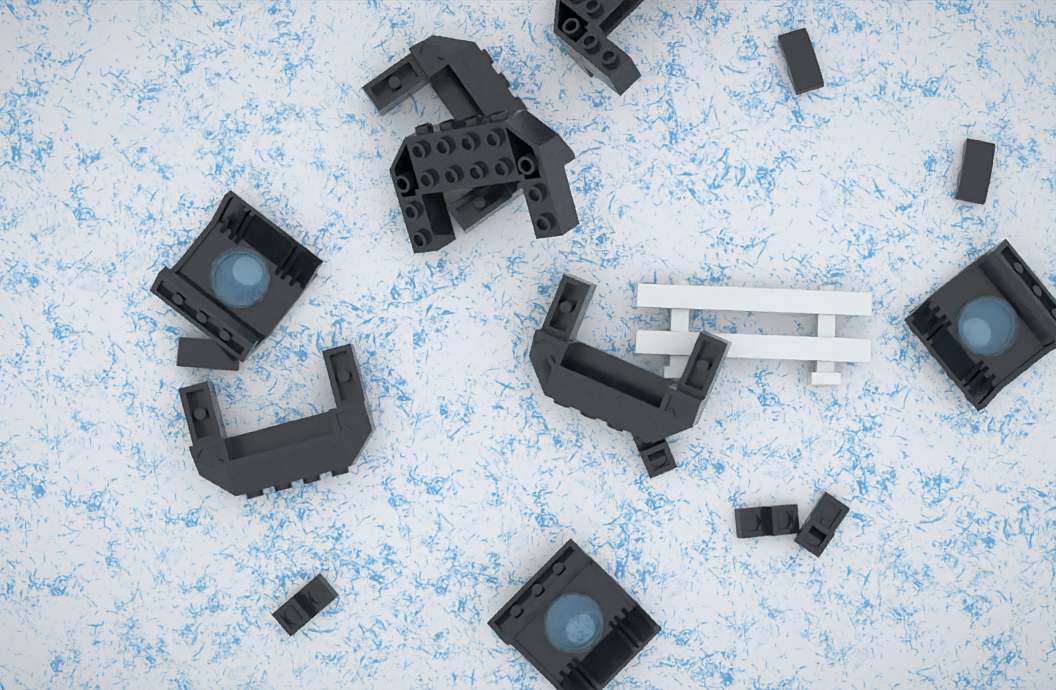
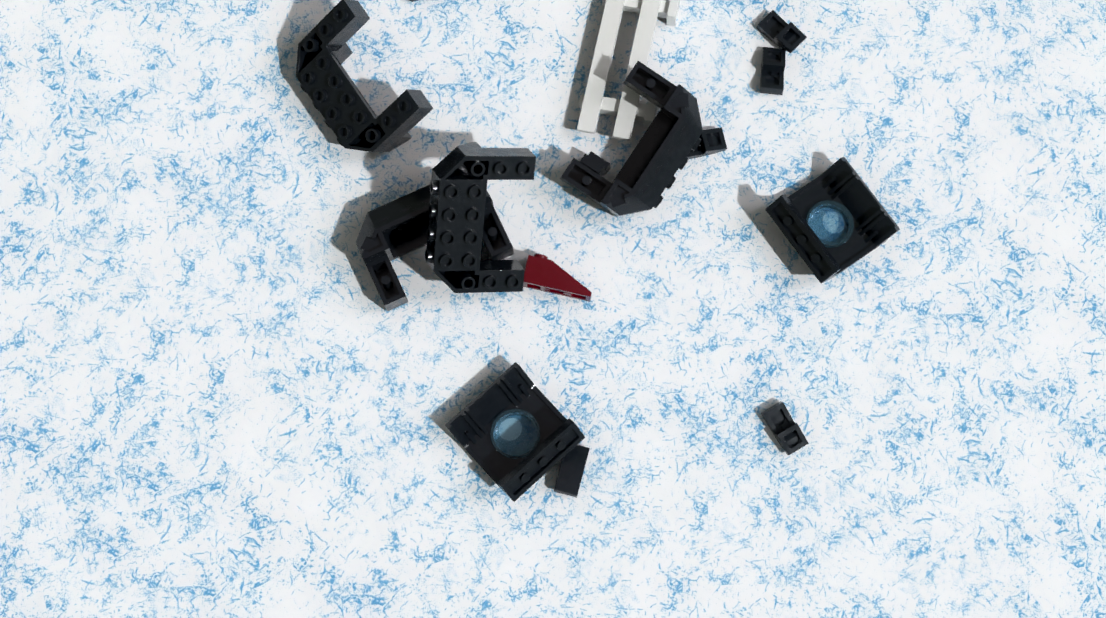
camera: 80 degrees left, 10 degrees down
(286, 450) = (660, 416): black wedge -> none
(441, 283) = (549, 277): none -> dark red slope
(593, 314) = (596, 163): none -> black slope

